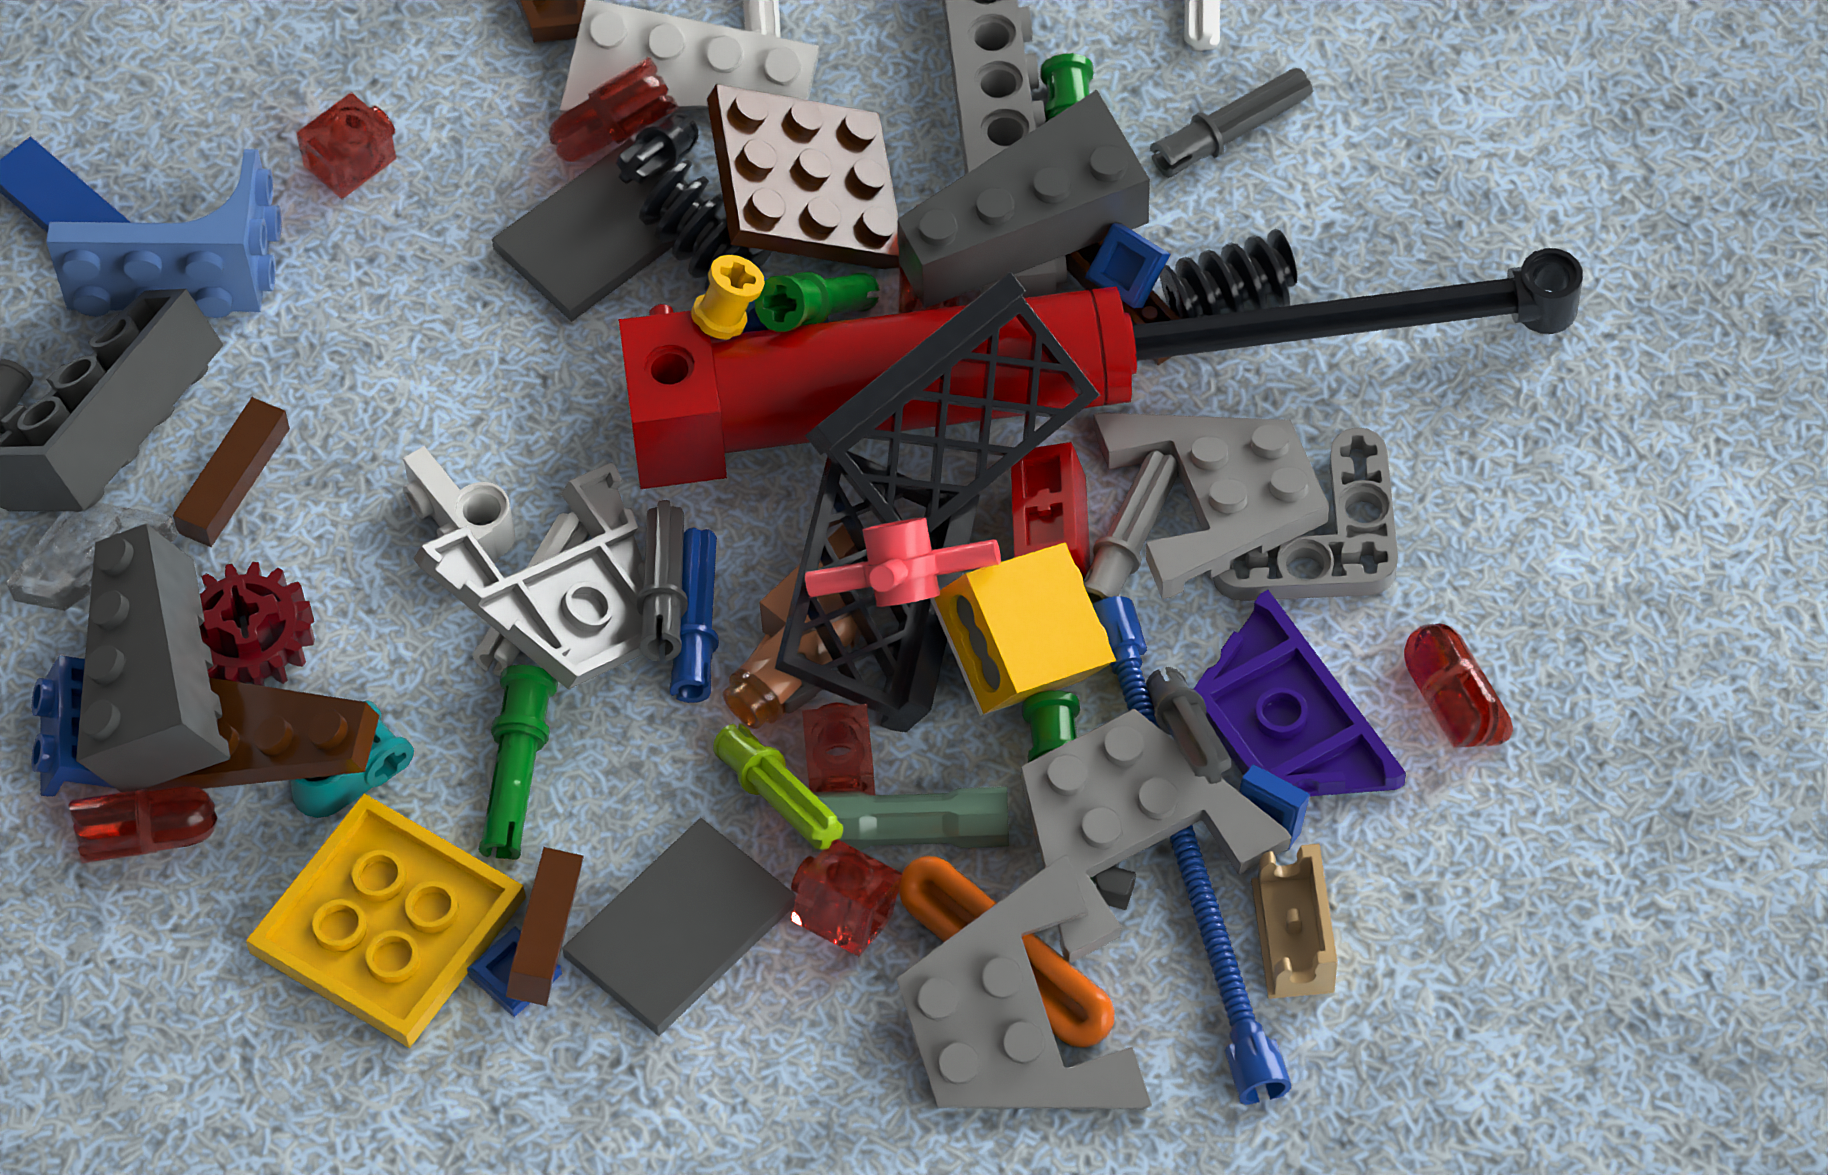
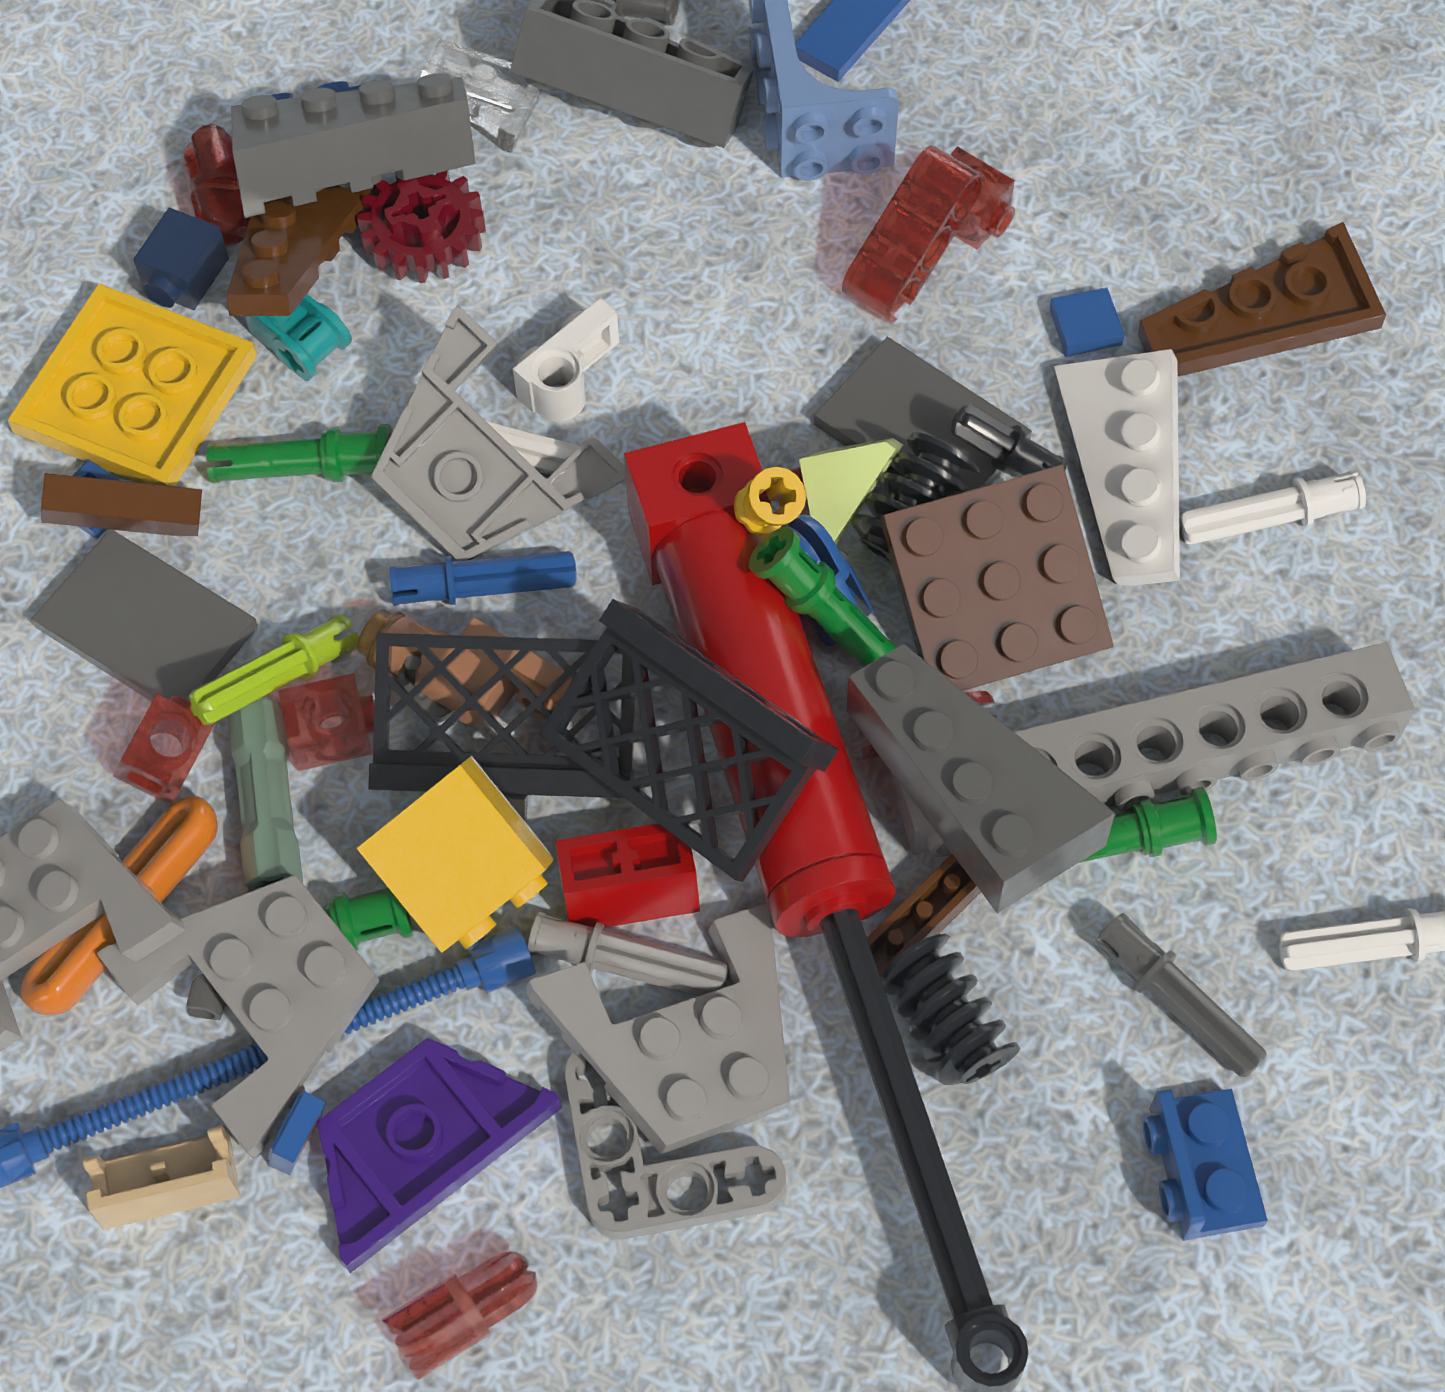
camera: 80 degrees right, 5 degrees up
(231, 472) = (592, 184): reddish brown piece -> none
(233, 860) = (180, 259): none -> dark blue brick
(393, 184) = (912, 232): none -> clear red beam
(511, 79) = (1086, 322): none -> blue tile
(613, 112) = (1047, 402): clear red arm -> none
(660, 268) = (842, 479): none -> yellowish green slope
(662, 598) = (488, 536): dark grey axle -> none
(902, 564) = (475, 711): coral bar -> none
(1129, 264) = (932, 897): blue tile -> none
(1183, 715) = (384, 1027): dark grey axle -> none
(1386, 132) = (1205, 1162): none -> blue bracket

